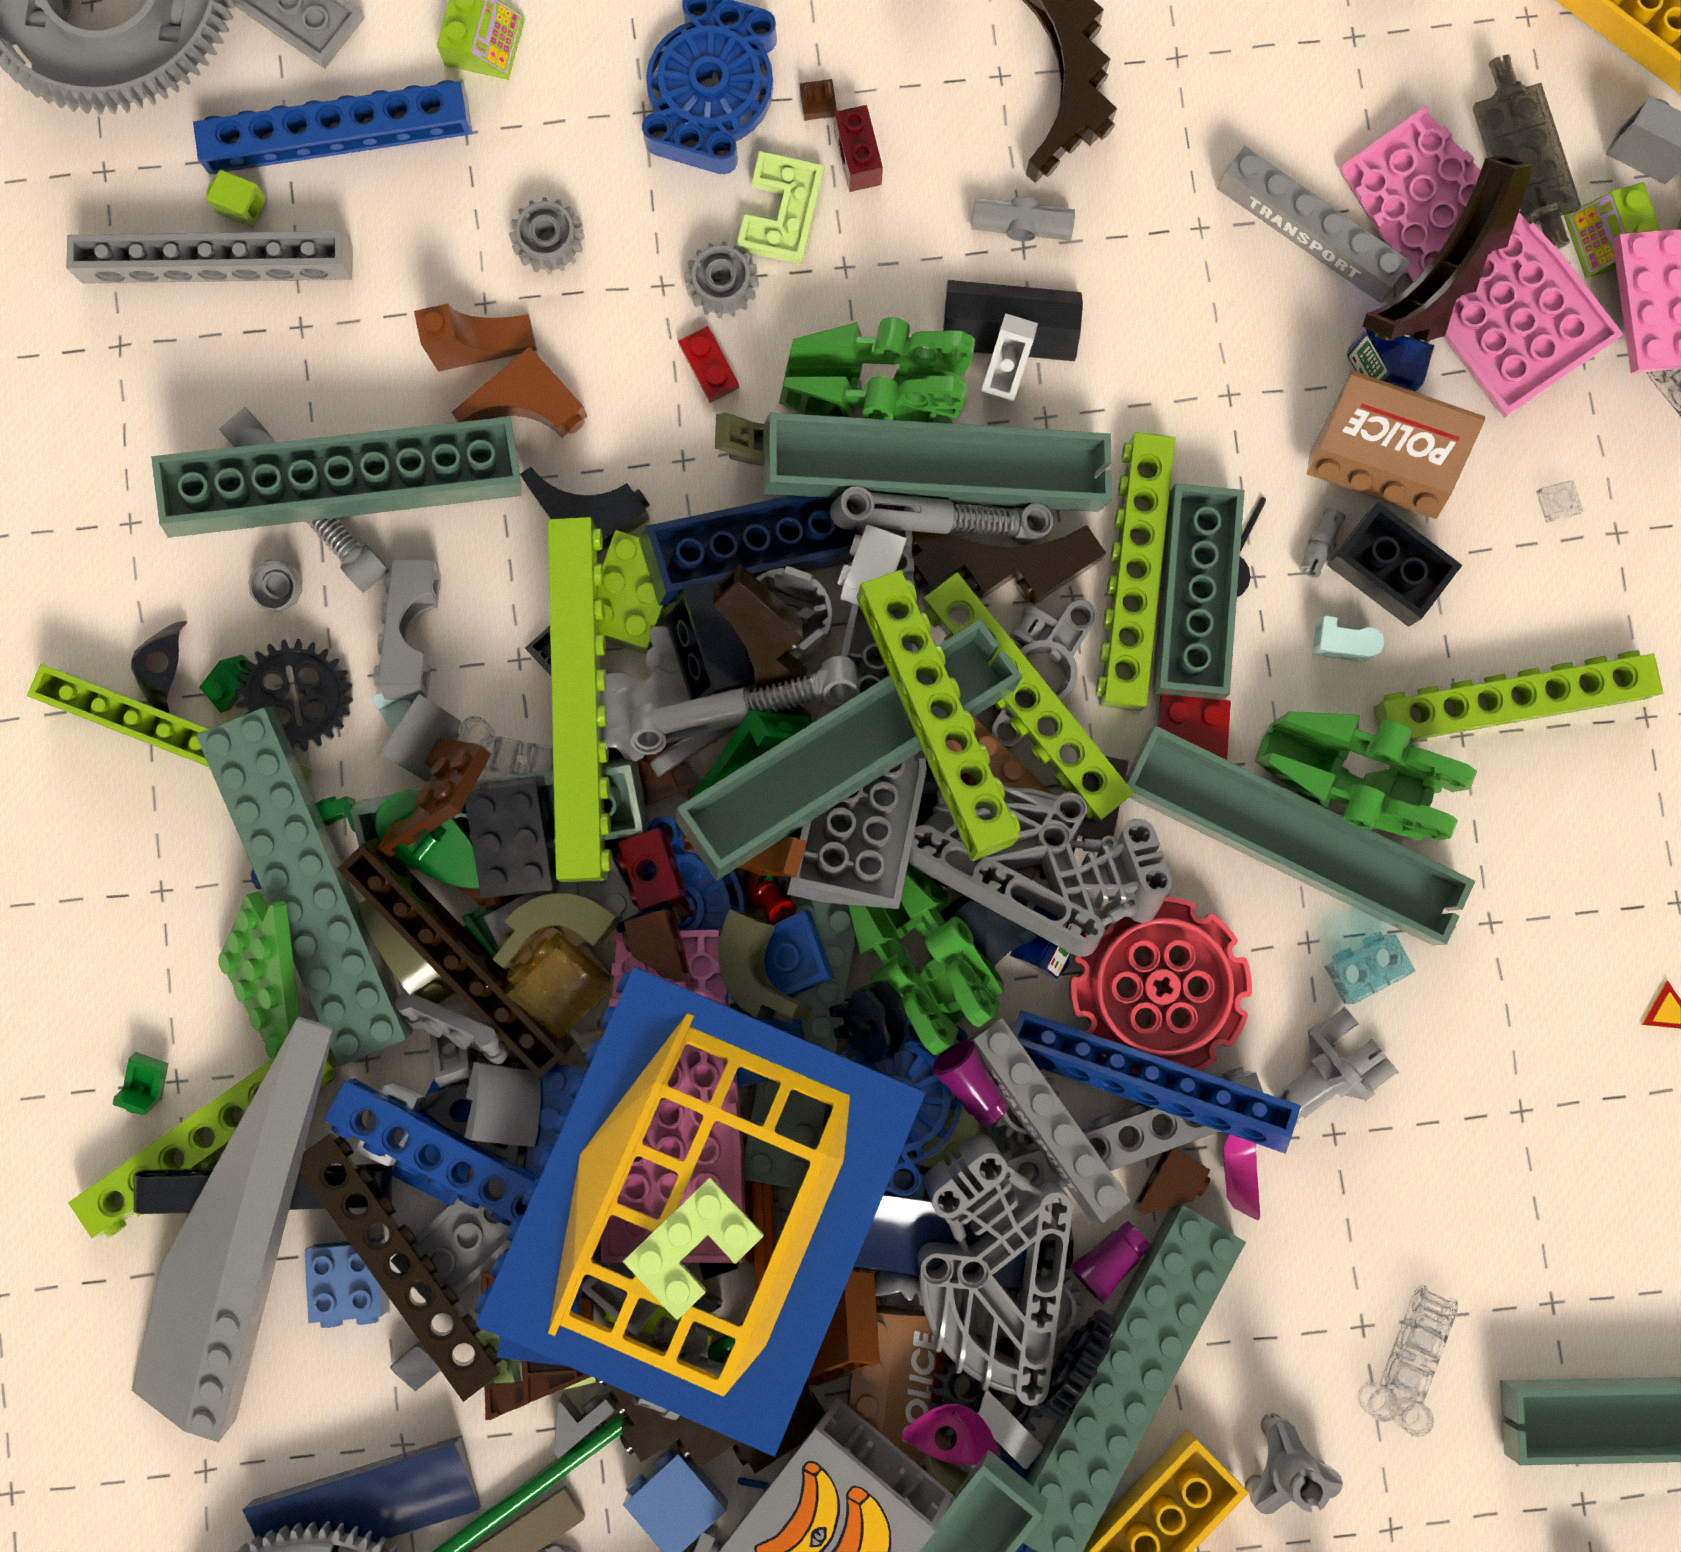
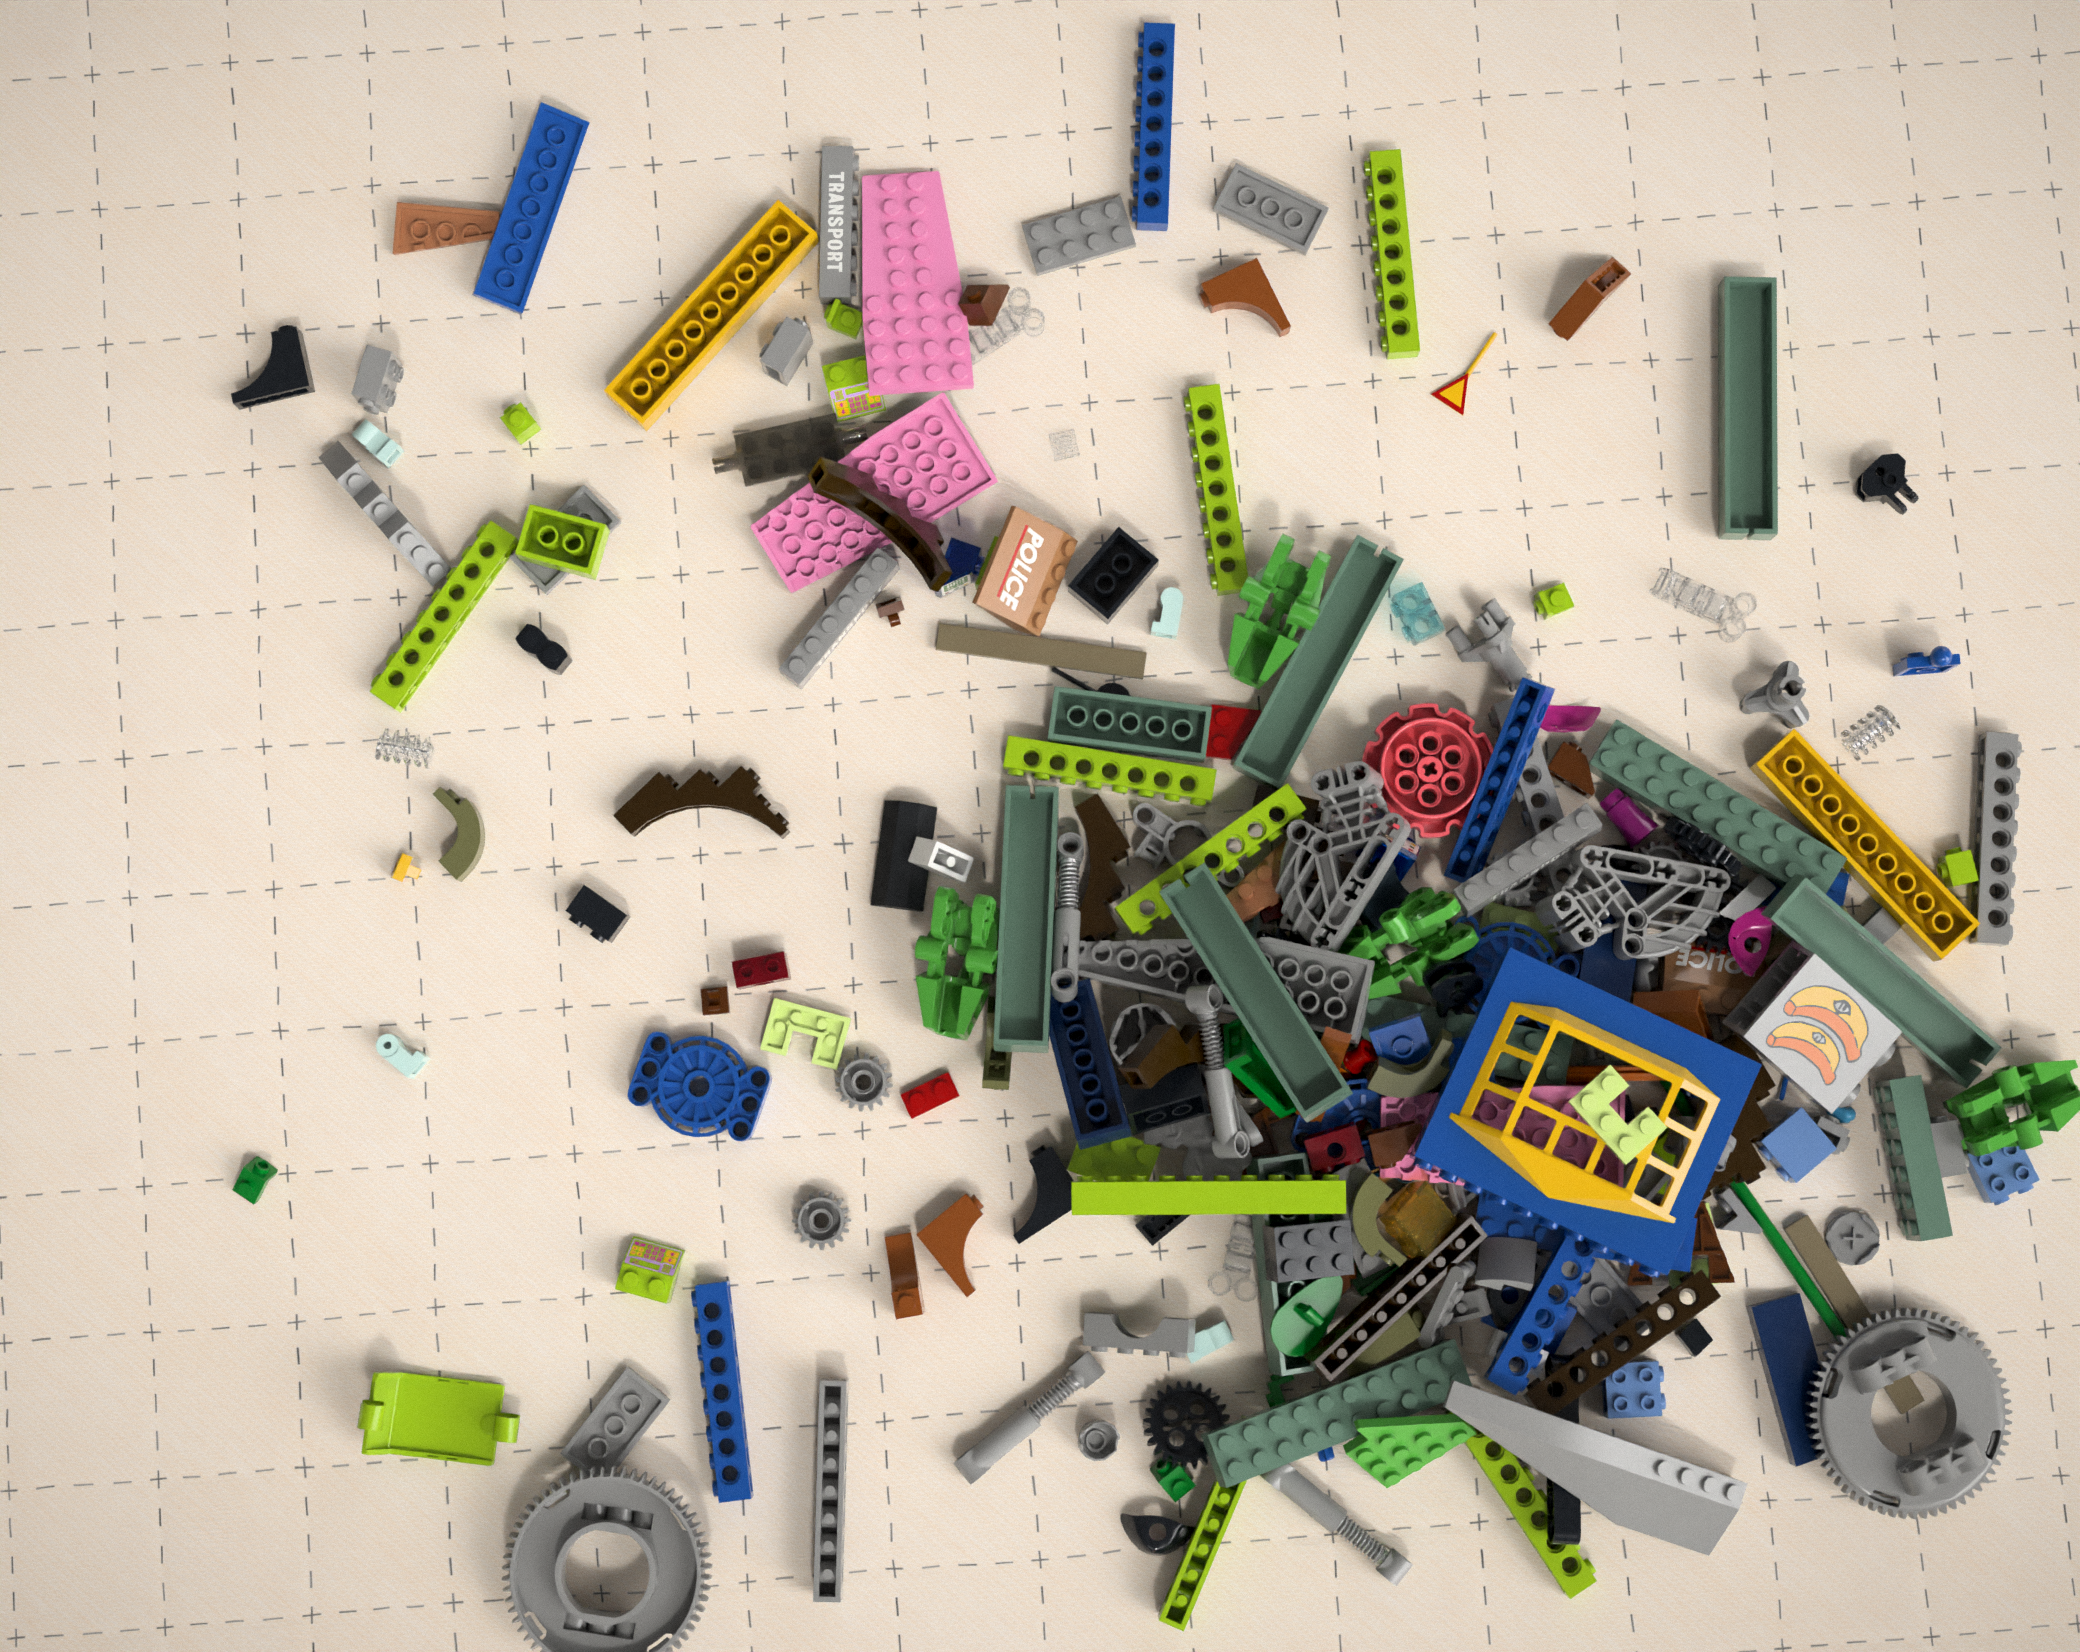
camera: 80 degrees left, 0 degrees up
(120, 965) = (1333, 1518): none -> light grey piece
(142, 1084) = (1482, 1545): green bracket -> none
(235, 198) = (781, 1470): lime brick -> none
(335, 476) = (1019, 1383): sand green brick -> none
(417, 735) = (1224, 1323): light grey slope -> none
(455, 772) = (1276, 1296): reddish brown wing -> none
(874, 555) = (1110, 971): white brick -> none
(970, 1082) = (1498, 915): magenta plant -> none
(978, 835) = (1250, 930): lime brick -> none
(1023, 219) = (823, 843): light grey piece -> none
(1285, 482) = (1041, 651): none -> dark tan tile
(1322, 542) = (1091, 627): light grey pin -> none
(1327, 289) = (890, 608): none -> reddish brown tile
(1398, 1152) = (1552, 601): none -> lime bracket

